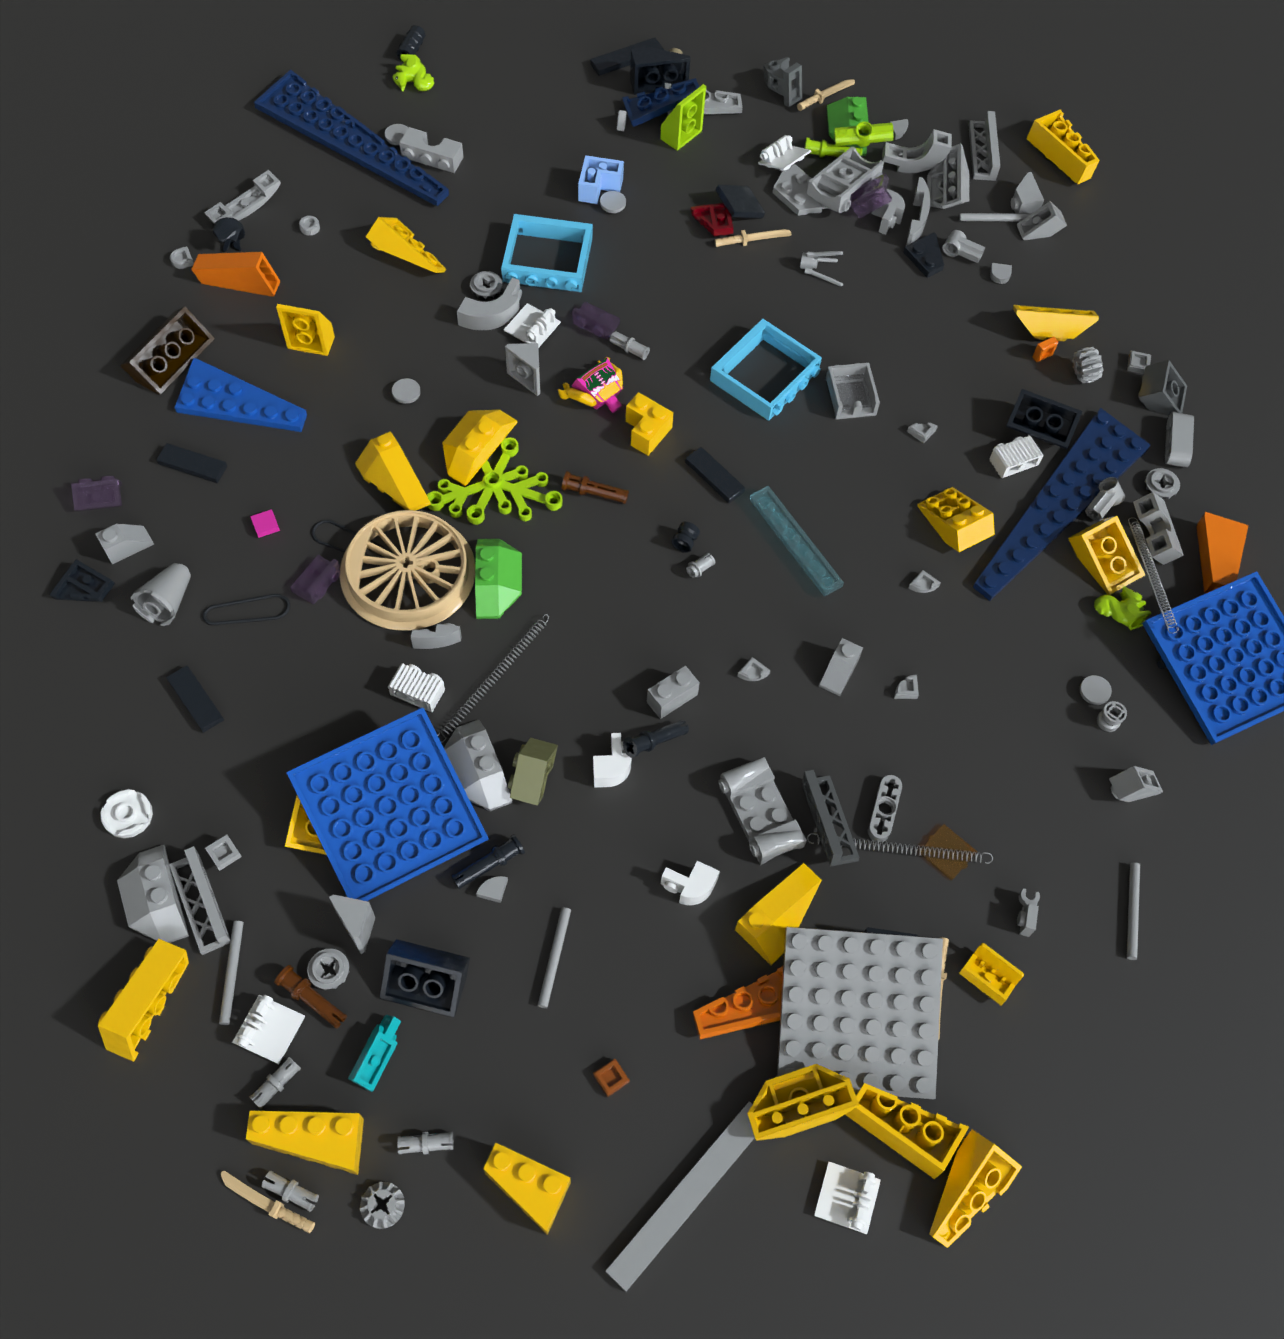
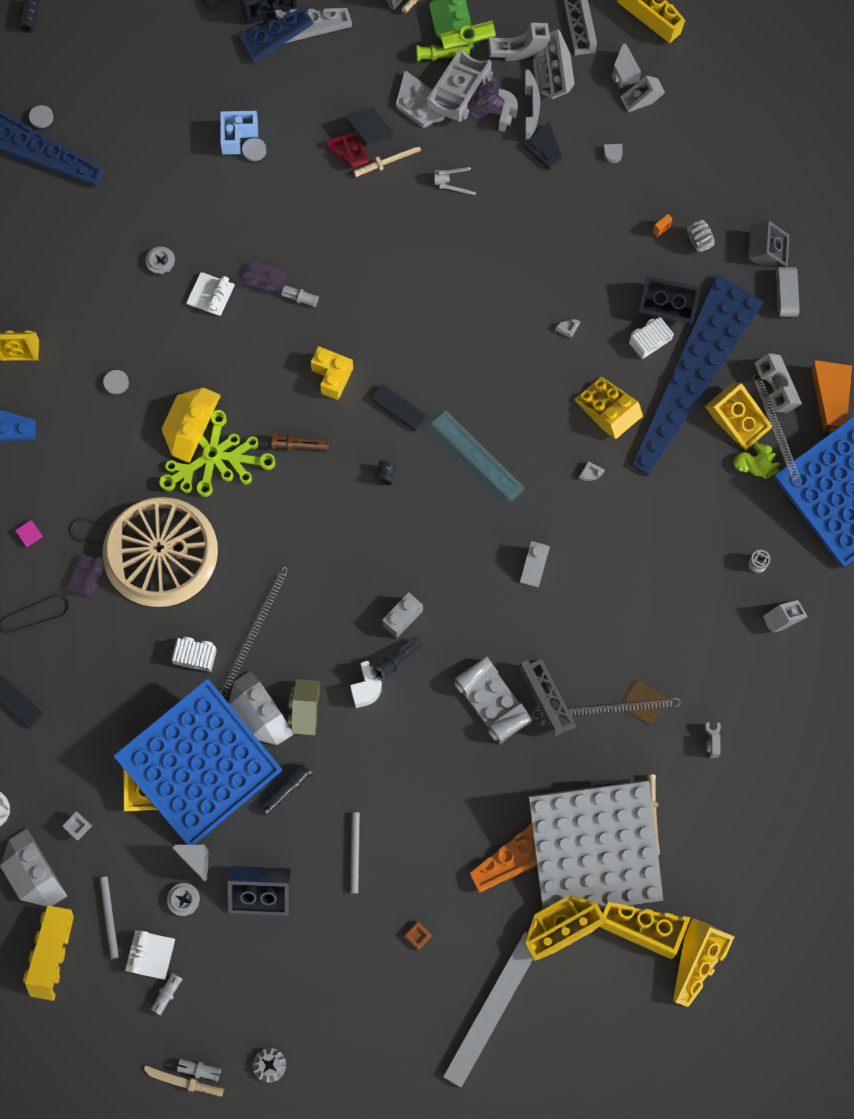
camera: 10 degrees left, 10 degrees up
(208, 898) = (75, 864): light grey fence -> none
(301, 989) = (167, 919): reddish brown pin -> none
(311, 1136) = (207, 1027): yellow wedge -> none
(376, 1054) = (237, 956): teal hinge -> none
(390, 471) = (120, 462): yellow wedge -> none
(396, 239) = (68, 232): yellow wedge -> none
(412, 71) = (39, 44): lime animal -> none
(425, 1143) = (290, 1014): light grey pin -> none
(442, 156) = (91, 133): light grey arch -> none
(445, 635) = (205, 604): light grey slope -> none
(491, 314) = (174, 290): light grey arch -> none
(493, 889) = (295, 809): light grey tile -> none
(496, 577) = (236, 541): bright green wedge -> none
(523, 365) = (215, 339): light grey slope -> none
(528, 1183) = (373, 1027): yellow wedge -> none
(548, 229) = (207, 191): medium azure window -> none
(597, 386) = (281, 344): torso -> none
(621, 123) = (243, 59): light grey tile -> none
(685, 120) = (302, 52): lime slope -> none
(692, 889) = (452, 776): white brick -> none
(696, 568) = (403, 495): light grey pin -> none
(753, 671) = (464, 581): light grey tile -> none
(765, 331) = (415, 257): medium azure window -> none
(781, 908) = (522, 781): yellow wedge -> none
(782, 154) = (398, 68): white hinge -> none
(847, 1197) = (609, 986): white hinge -> none
(852, 390) = (501, 302): light grey window -> none
(877, 815) = (596, 664): light grey beam -> none
(899, 128) = (499, 14): light grey tile -> none
(907, 688) = (591, 570): light grey tile -> none
(958, 245) = (571, 132): light grey piece -> none
(991, 973) = (691, 795): yellow bracket -> none
(1000, 217) = (599, 94): light grey bar -> none
(1055, 322) = (666, 196): yellow wedge -> none
(1095, 690) = (743, 539): light grey piece -> none
(1109, 495) = (734, 359): light grey piece -> none
(1133, 911) = (795, 720): light grey bar -> none
(1138, 361) = (744, 219): light grey tile -> none
(1169, 480) = (783, 331): light grey gear -> none

